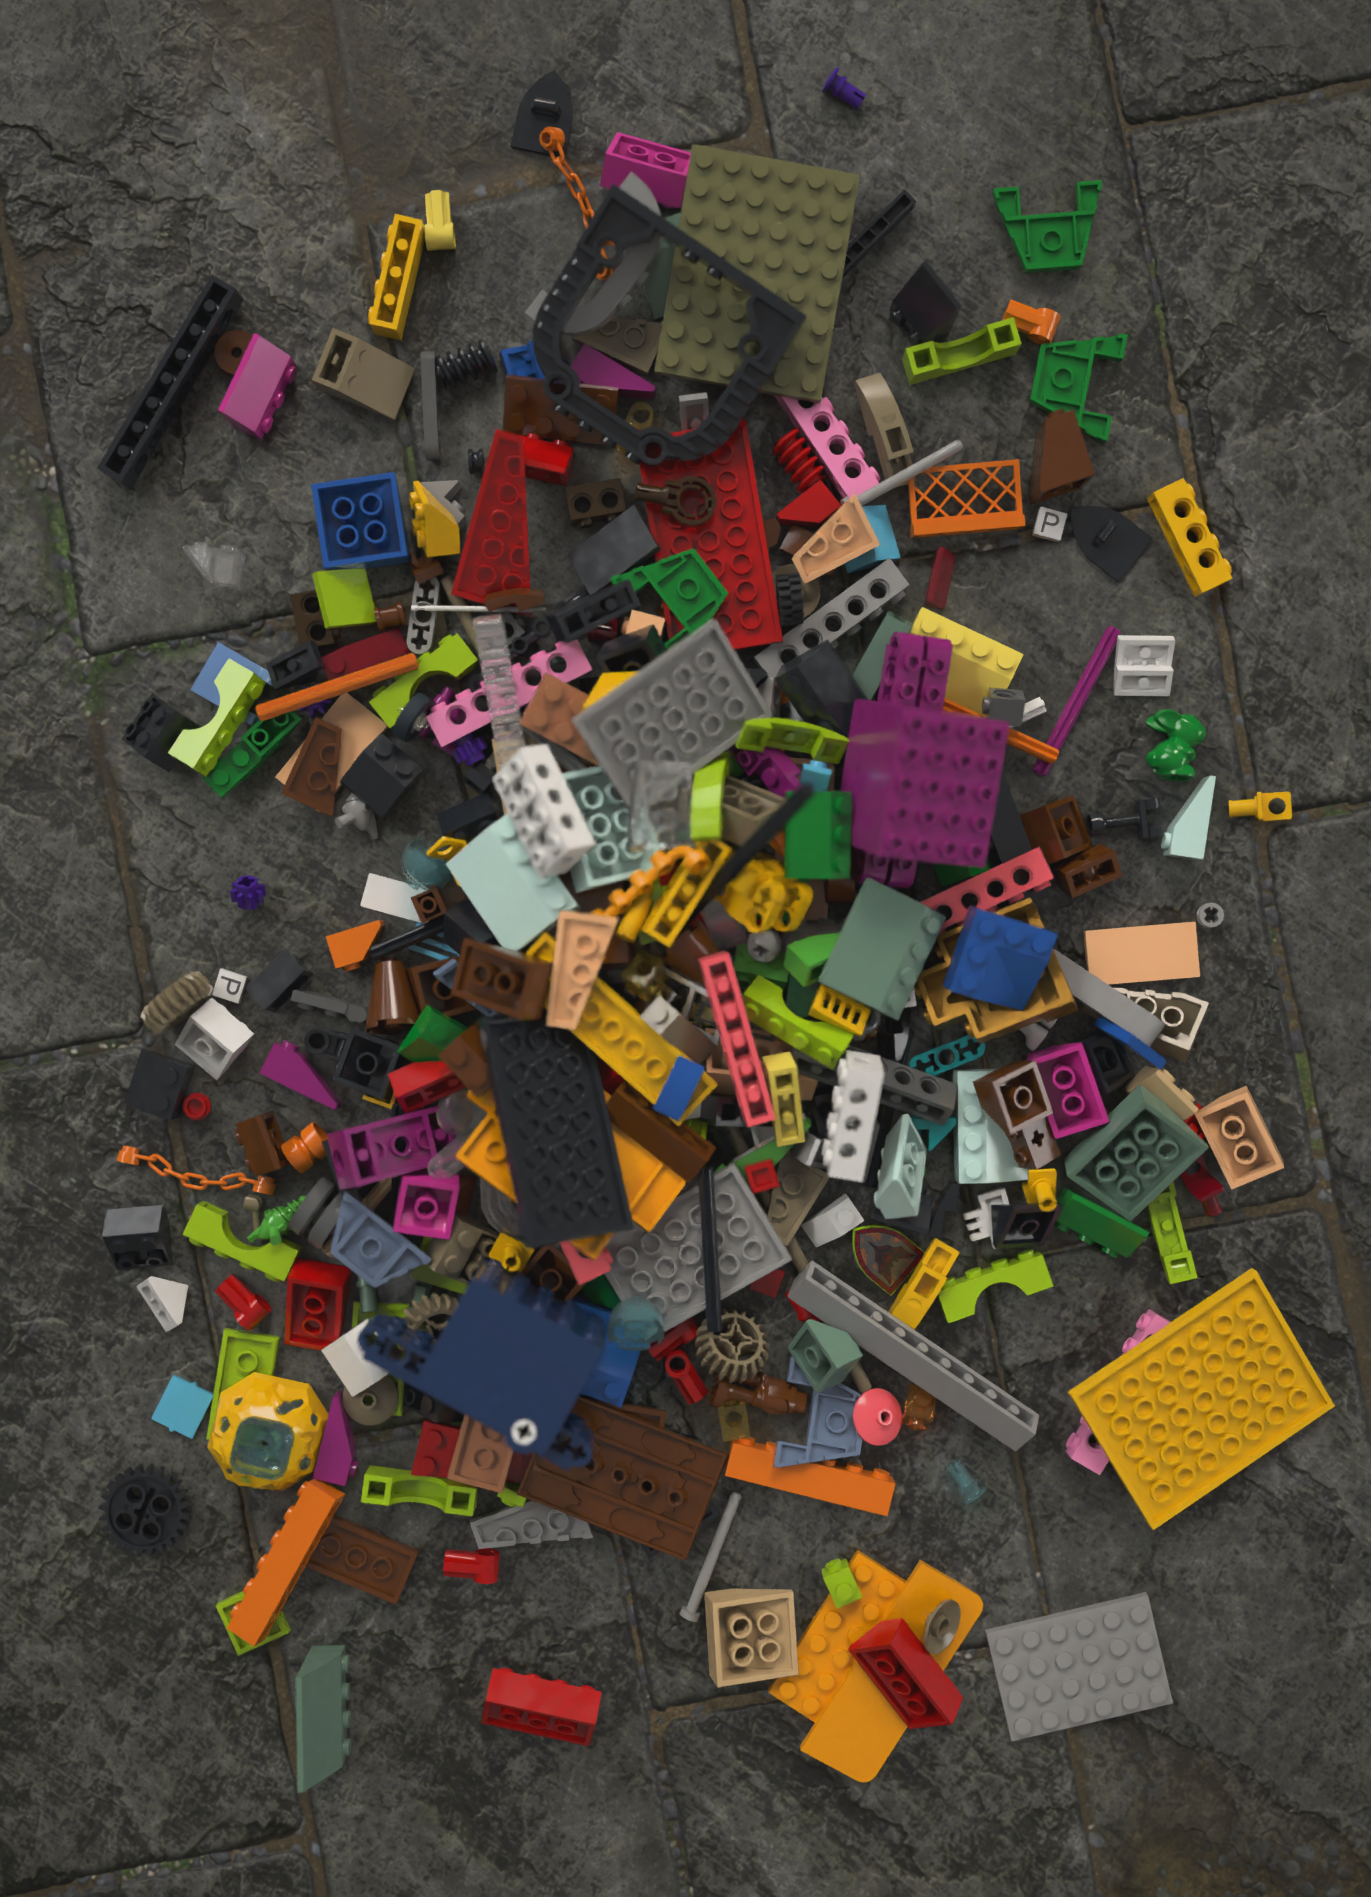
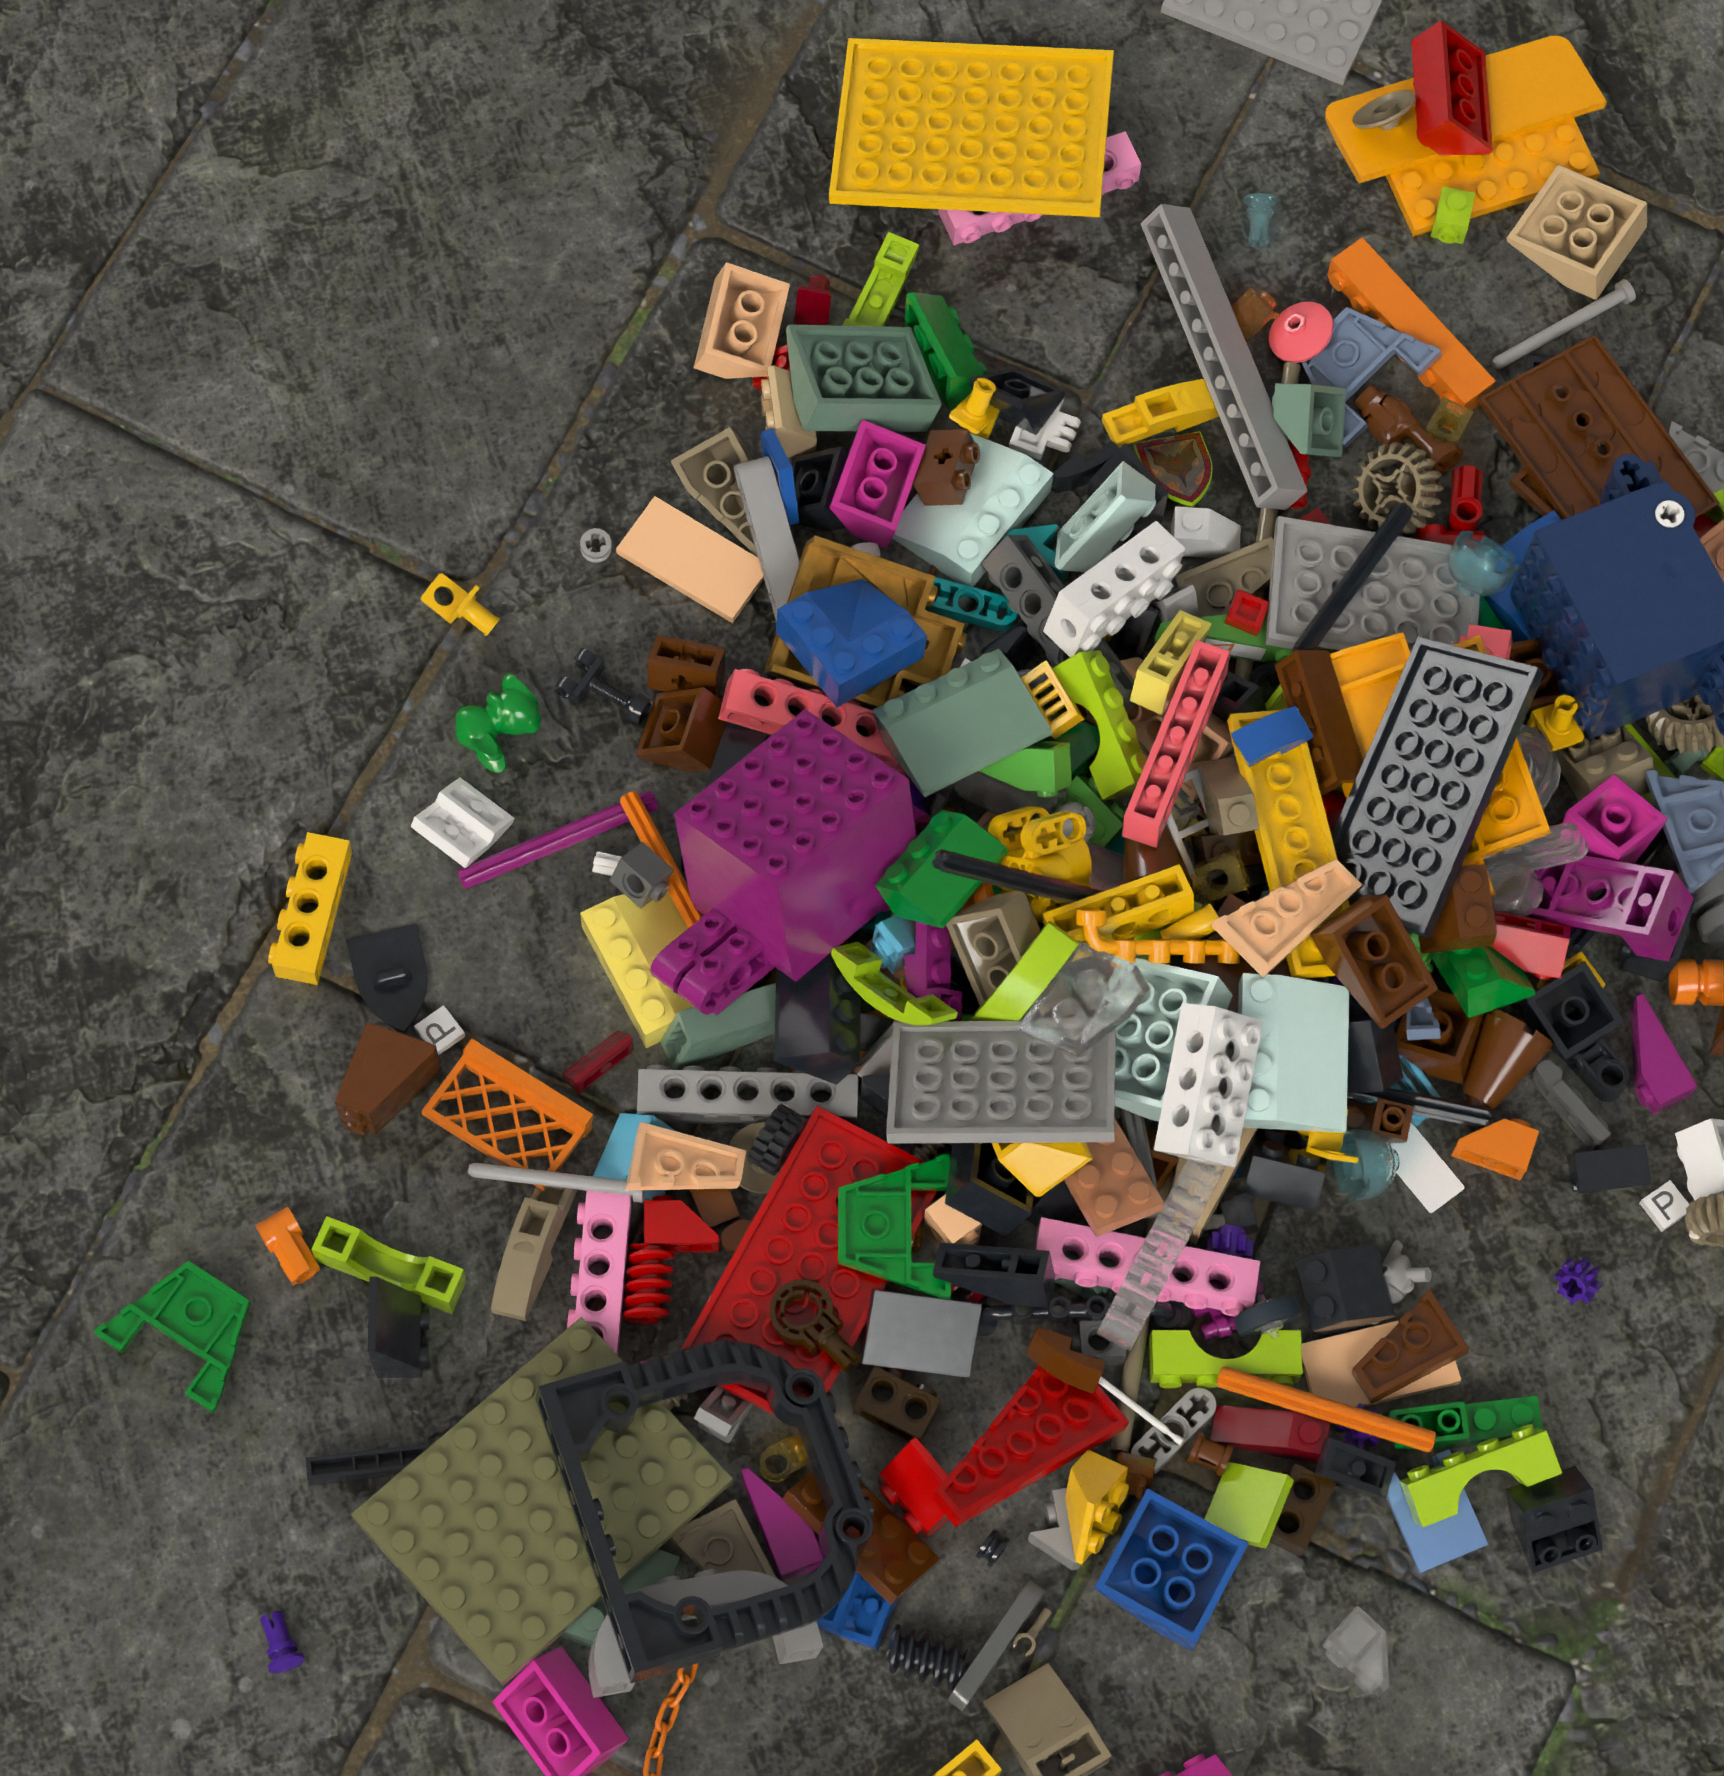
camera: 145 degrees left, 20 degrees down
(417, 428) = (1034, 1630): none -> dark tan hand
(960, 1295) = (1052, 358): lime arch -> none
(1014, 1095) = (936, 507): reddish brown slope -> none
(1064, 377) = (300, 1164): green wing -> none
(1189, 829) = (545, 639): light aqua slope -> none

